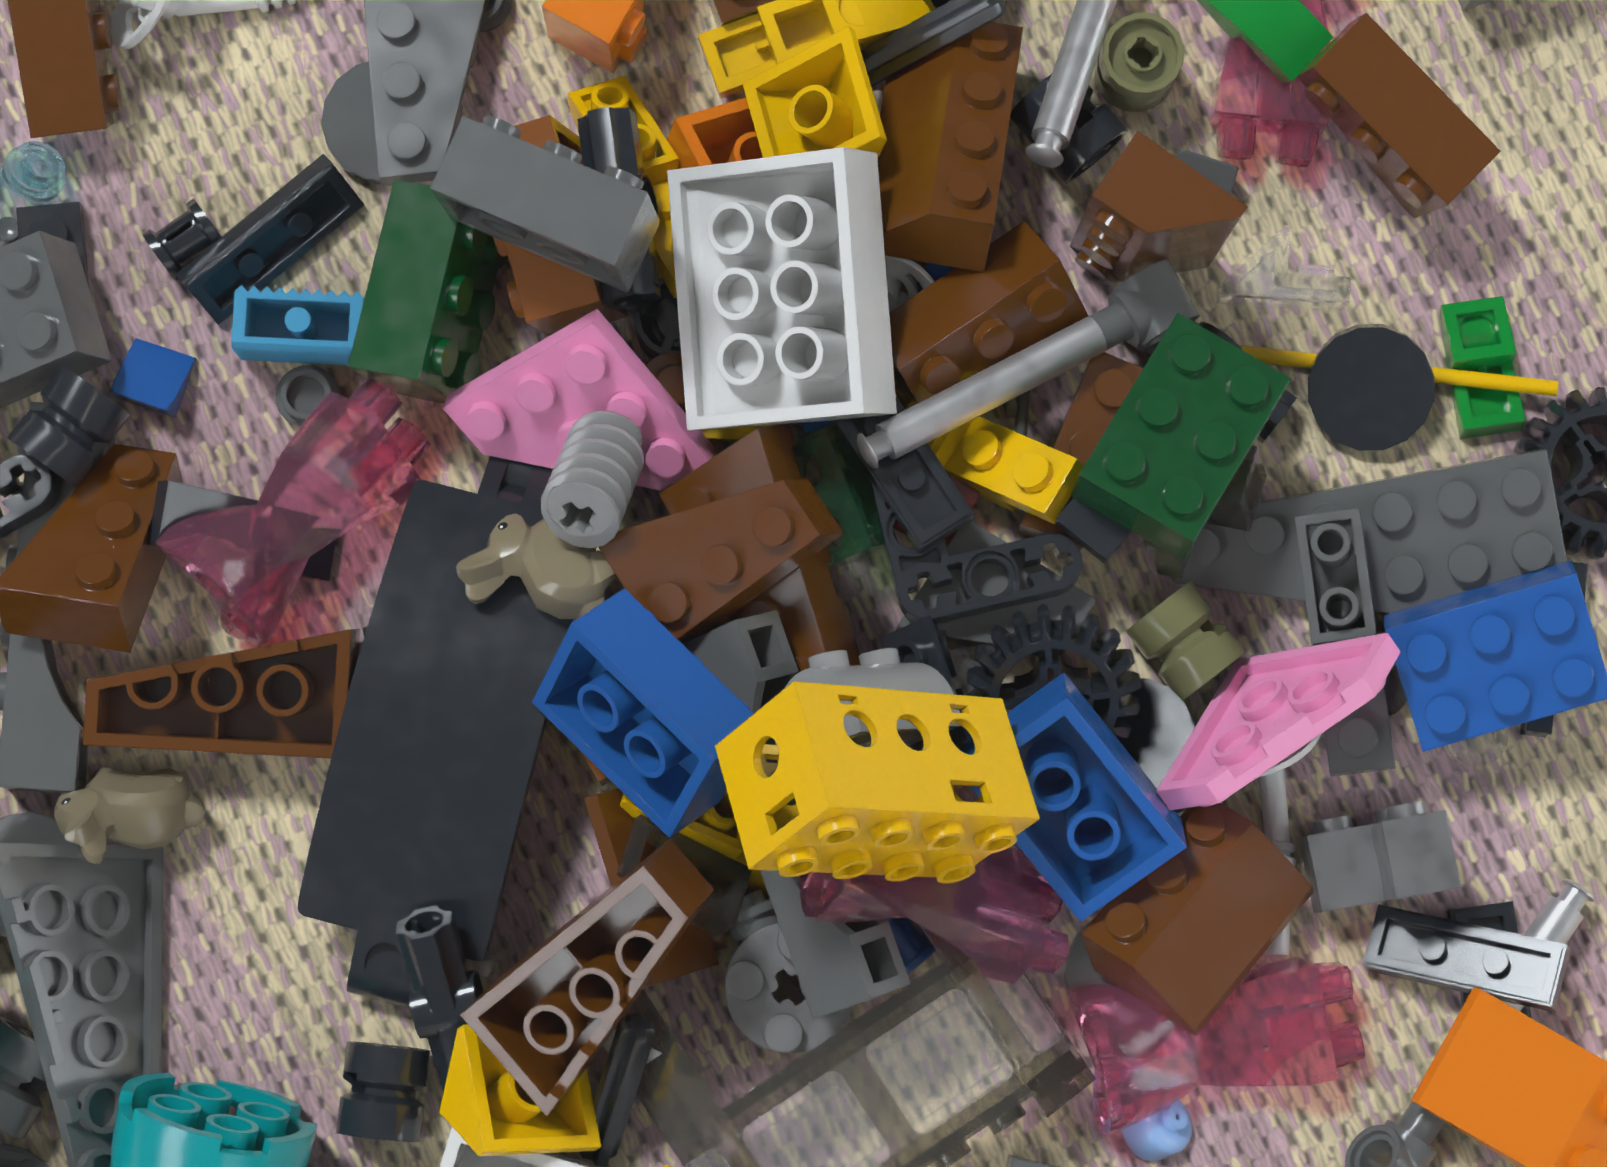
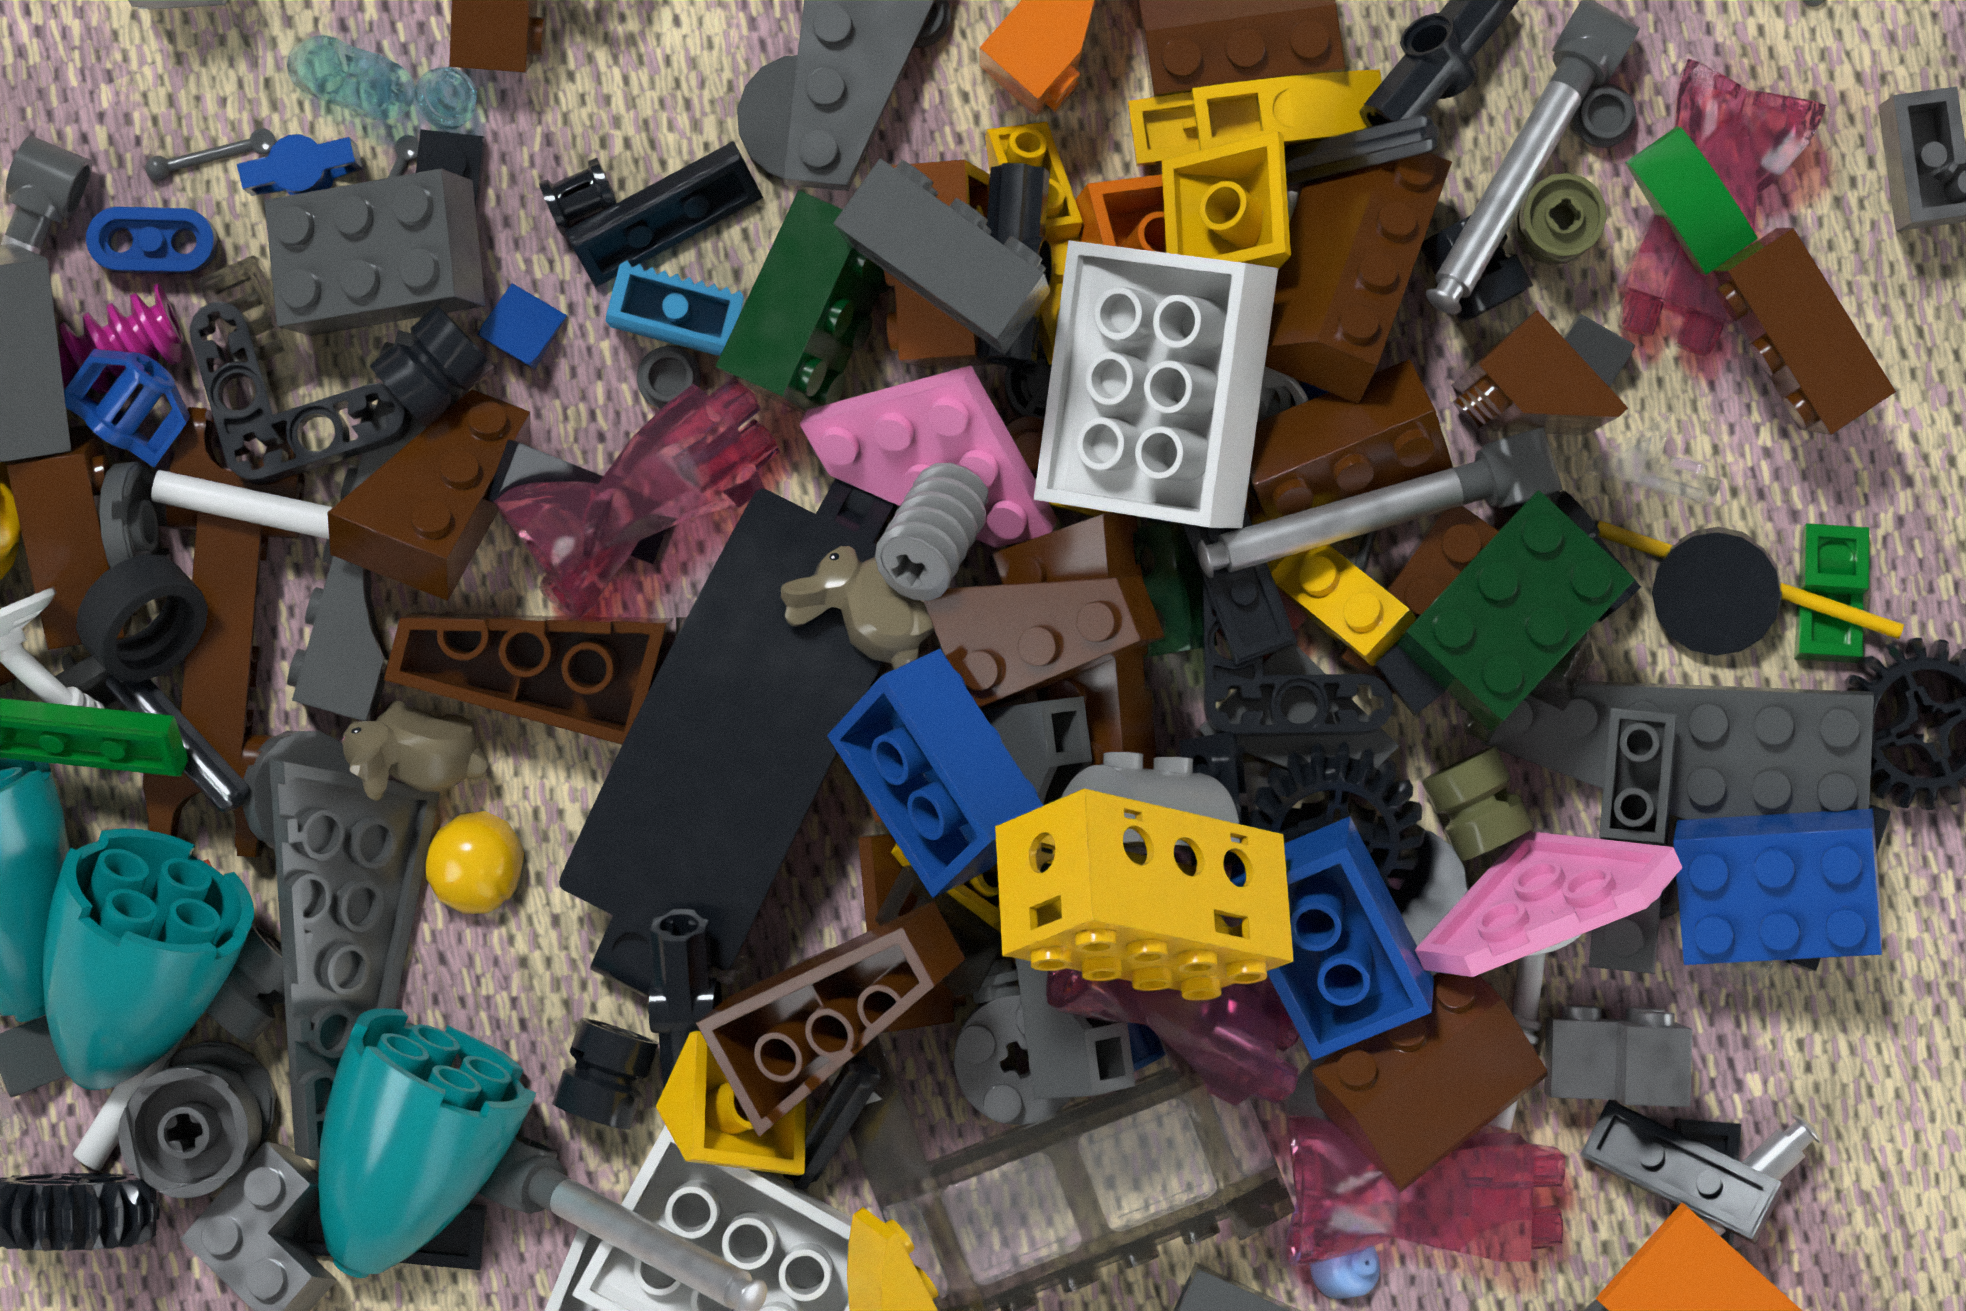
camera: 20 degrees right, 5 degrees up
(212, 911) = (474, 862): none -> yellow hair

